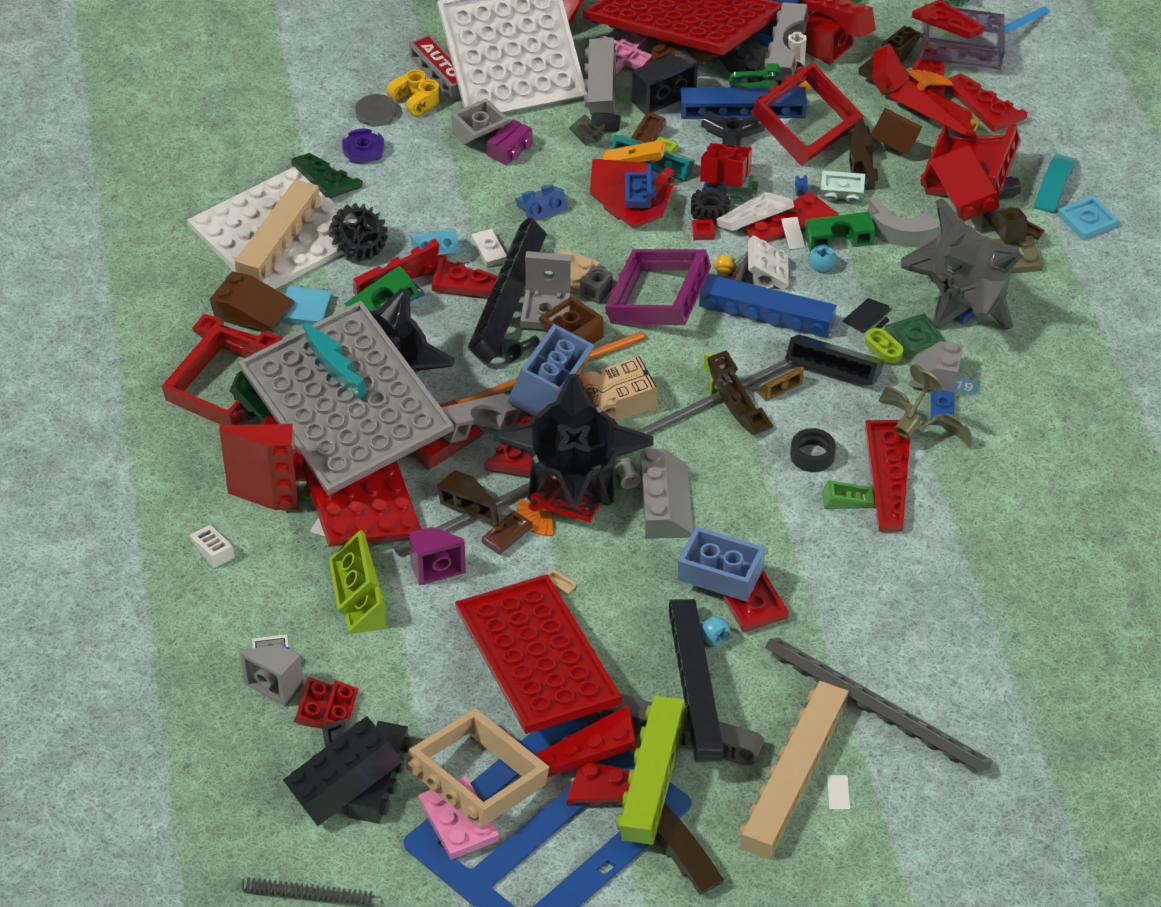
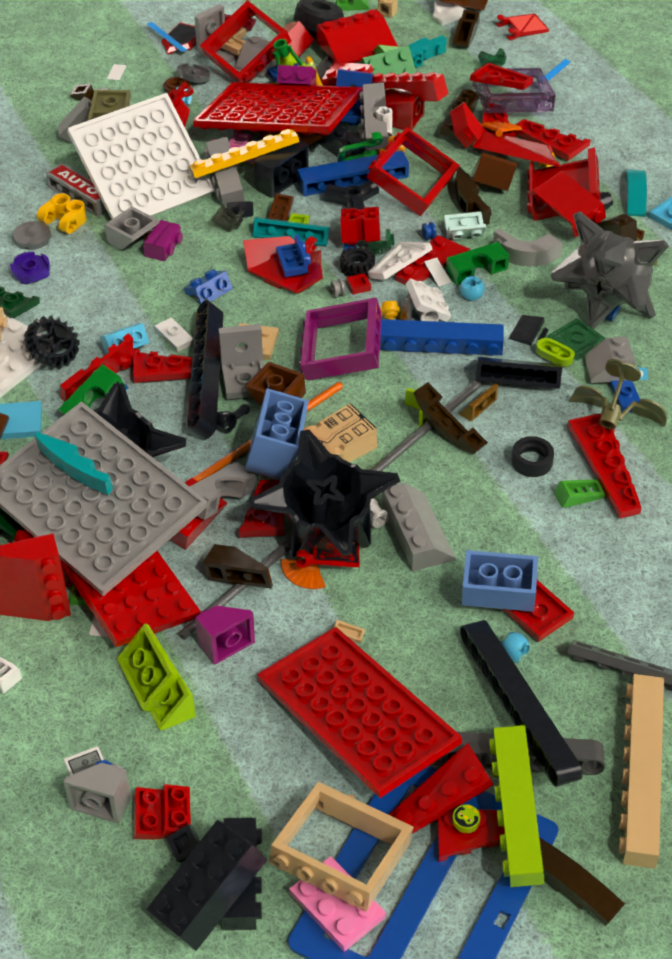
camera: 15 degrees left, 0 degrees up
(506, 532) = (282, 594): reddish brown plate -> none
(596, 284) = (283, 348): dark grey brick -> none
(602, 771) = (466, 818): none -> lime tile
(630, 59) = (238, 155): none -> yellow plate
(642, 152) = (285, 227): light orange tile -> none
(677, 230) = (337, 288): none -> light grey bush

